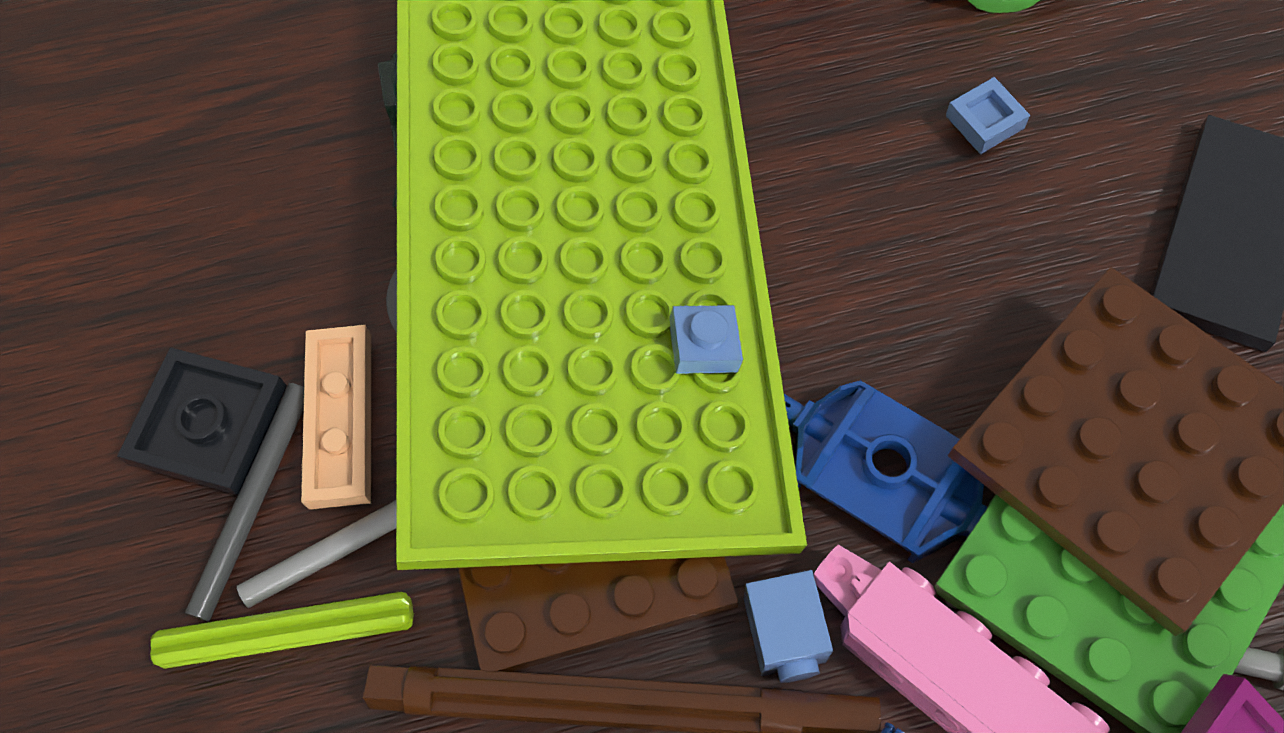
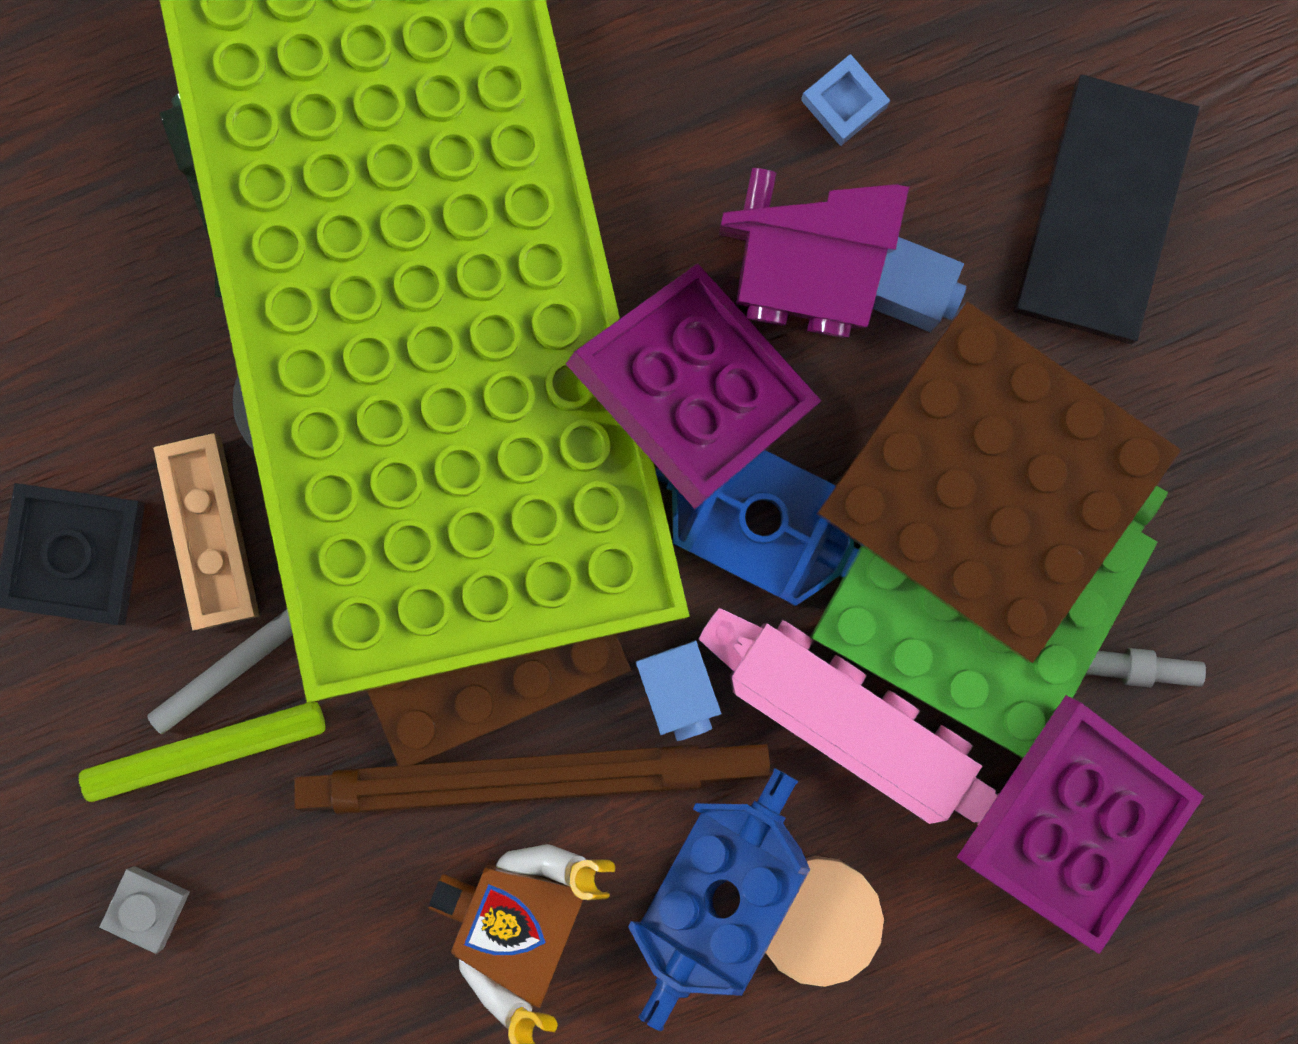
camera: 10 degrees left, 20 degrees up
(247, 505) = (137, 628): dark grey bar -> none
(705, 339) = (568, 421): medium blue plate -> none
(830, 325) = (693, 384): none -> magenta plate
(956, 216) = (814, 256): none -> magenta piece
(1050, 269) = (919, 286): none -> medium blue brick

